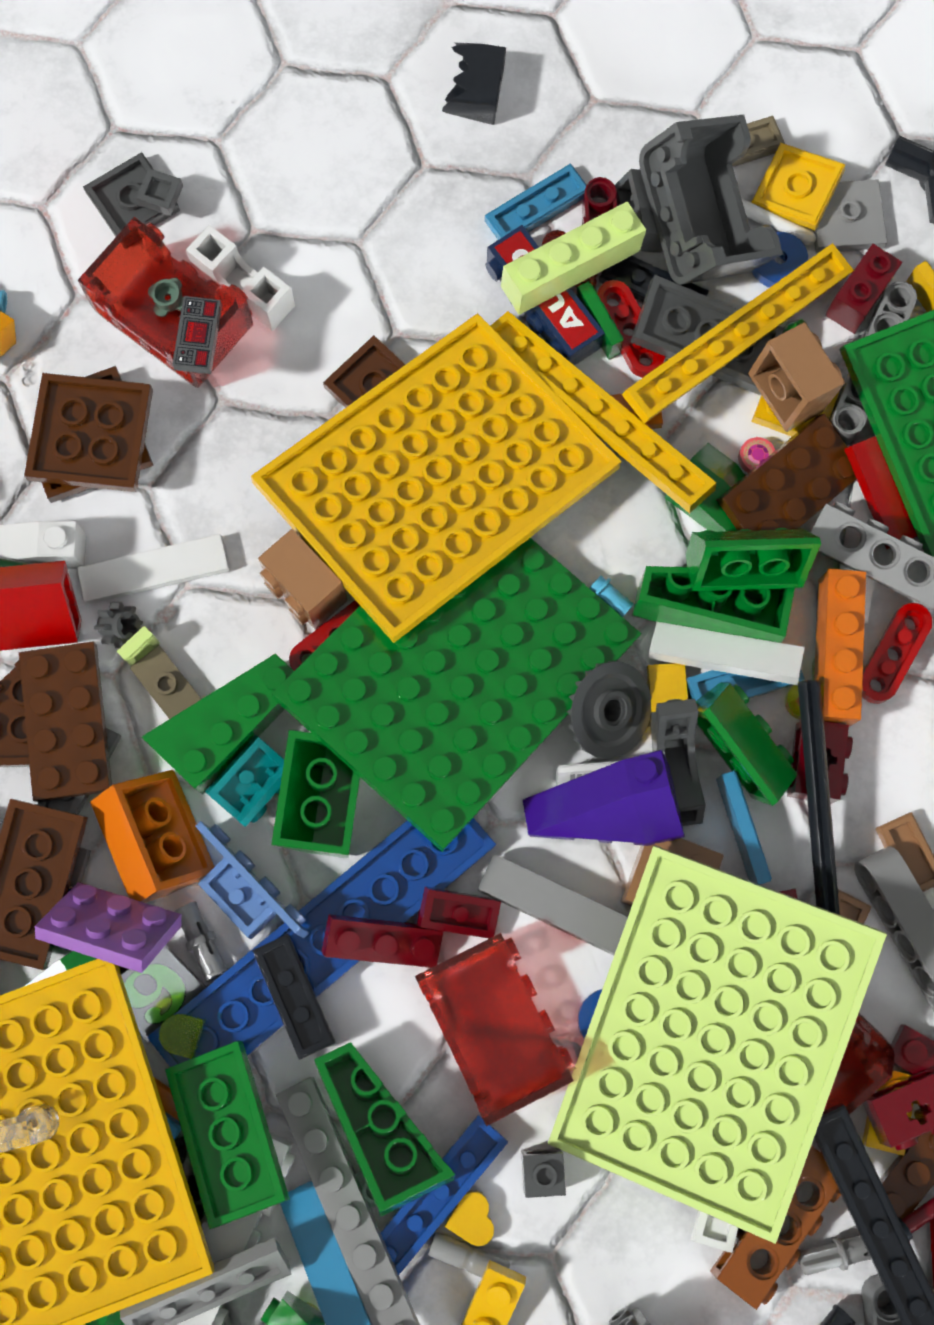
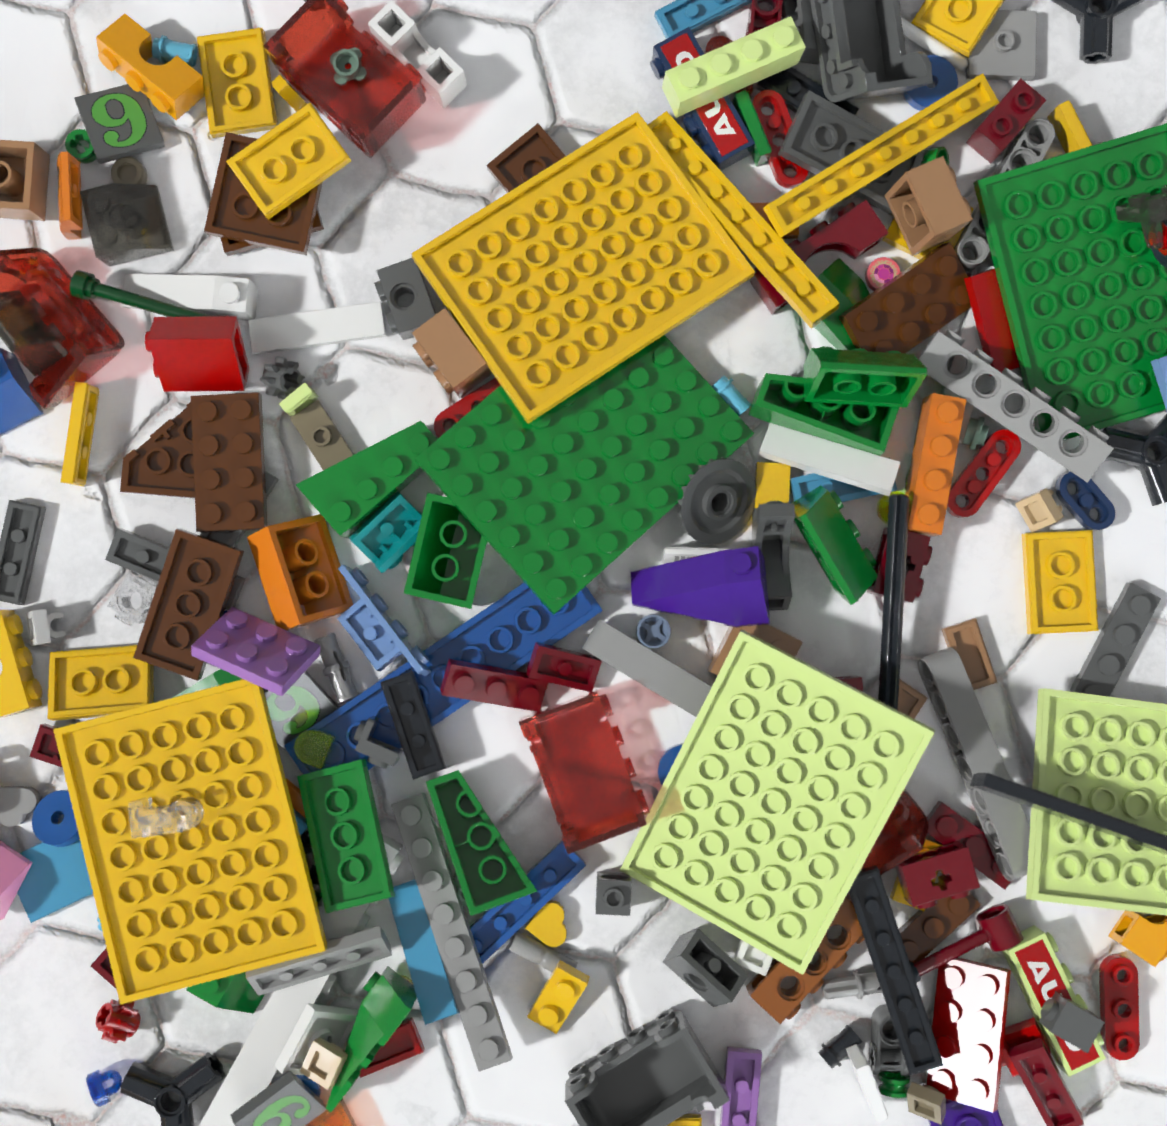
camera: 10 degrees right, 10 degrees up
(51, 325) = (237, 82): none -> yellow tile
(108, 332) = (288, 93): none -> yellow tile
(111, 395) = (289, 161): none -> yellow tile
(197, 335) = (371, 112): tile -> none
(242, 508) = (402, 279): none -> dark grey brick
(258, 1032) = (379, 752): none -> dark grey bracket
(558, 856) = (657, 631): none -> sand blue wheel
(661, 1251) = (706, 968): none -> dark grey brick
(718, 416) = (852, 234): none -> dark red arch
(743, 828) = (823, 619): dark azure tile -> none
(881, 610) = (975, 433): none -> sand green plate

